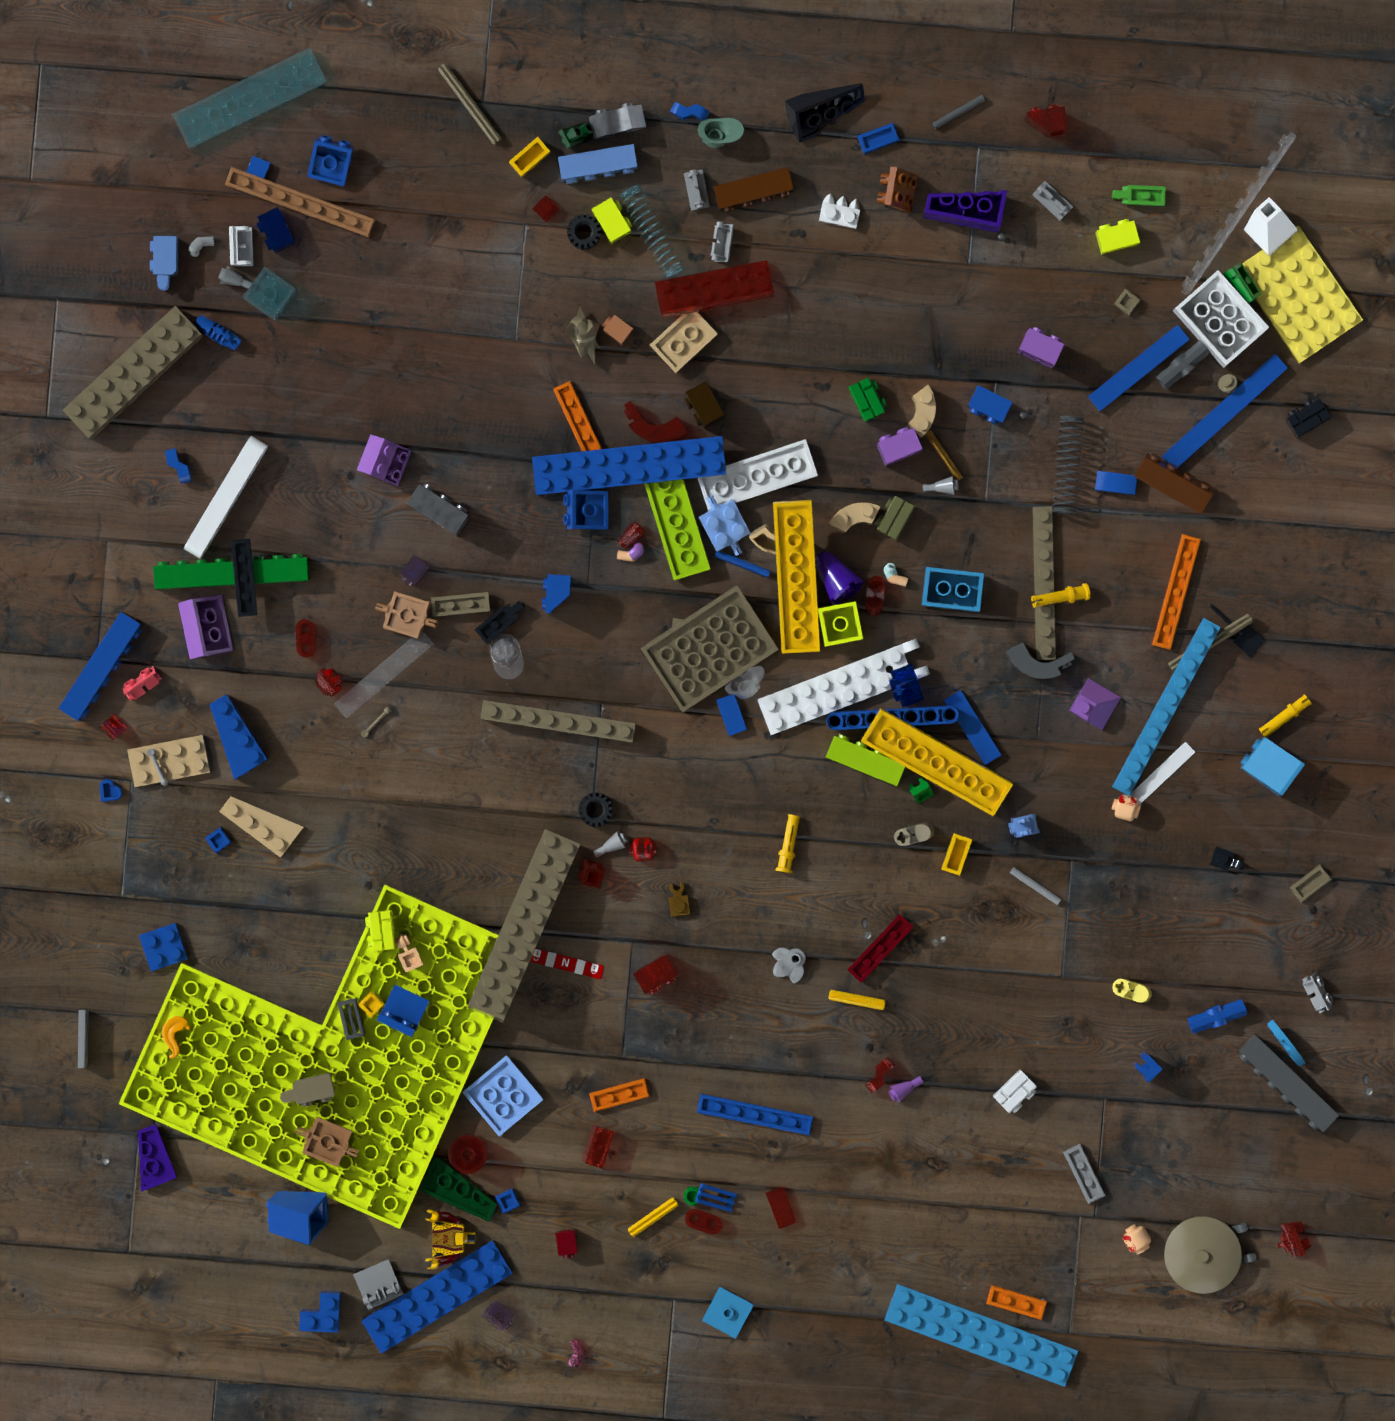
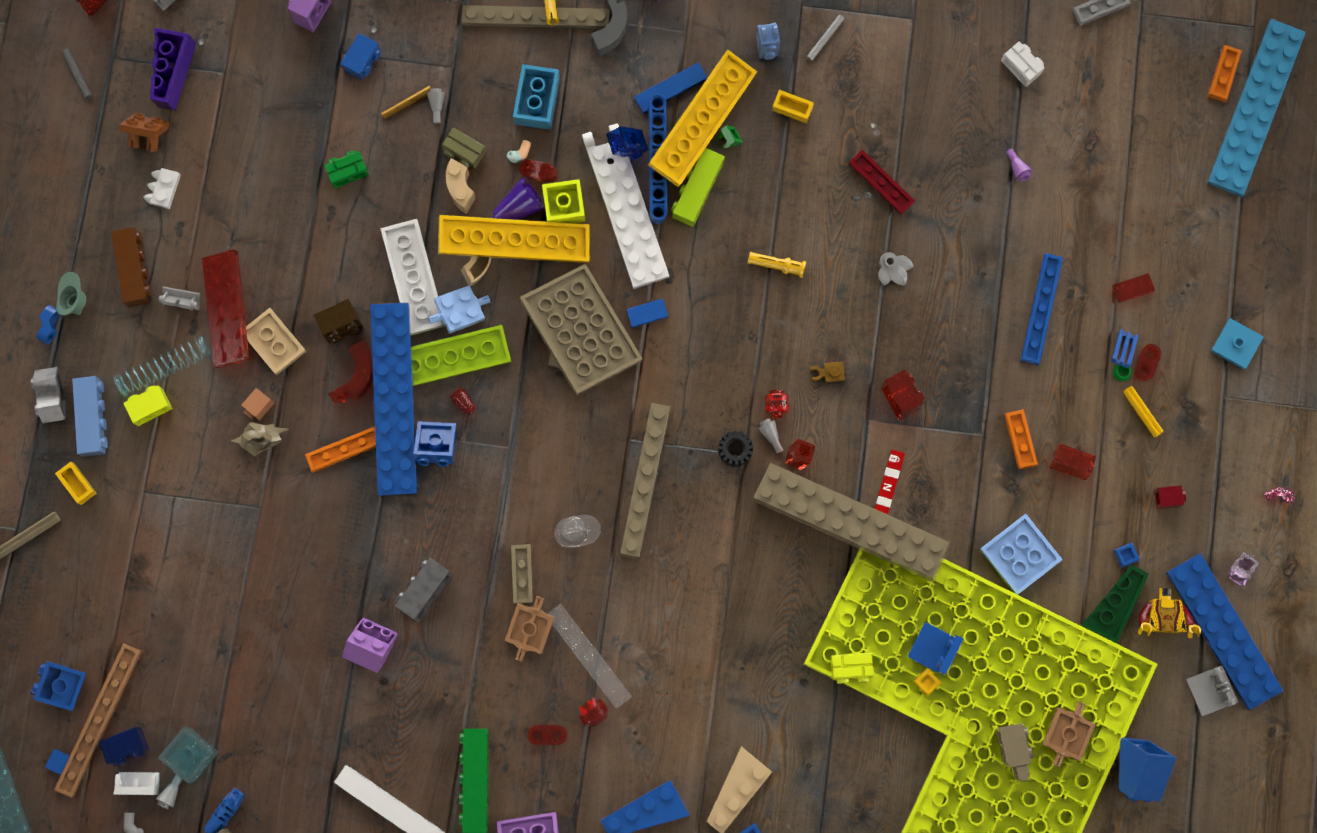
camera: 85 degrees left, 10 degrees down
(244, 577) = (480, 794): black tile -> none
(325, 1319) = (1249, 748): blue brick -> none
(358, 1015) = (924, 707): dark grey tile -> none
(365, 733) = (626, 654): dark tan hinge -> none
(409, 958) = (880, 639): light nougat plate -> none
(414, 571) = (485, 619): clear purple brick -> none
(461, 1161) = (1085, 581): clear red brick -> none
(498, 622) = (542, 536): black hinge -> none
(545, 208) = (130, 471): clear red plate -> none
(557, 591) = (513, 474): blue slope -> none
(576, 134) = (58, 435): dark green hips -> none
(584, 220) = (148, 425): black tyre -> none
(632, 555) = (483, 401): arm -> none
(696, 189) = (126, 322): light grey hinge -> none
(742, 563) = (499, 295): blue bar -> none
(746, 684) = (616, 293): clear piece -> none
(815, 110) = (59, 204): black wedge -> none
(857, 999) = (931, 207): yellow axle -> none
(878, 138) = (94, 149): blue tile -> none
(878, 1080) = (1010, 189): clear red piece -> none
(899, 446) = (393, 139): medium lavender brick -> none
(905, 835) = (772, 153): dark tan piece -> none
(924, 411) = (362, 116): tan brick -> none

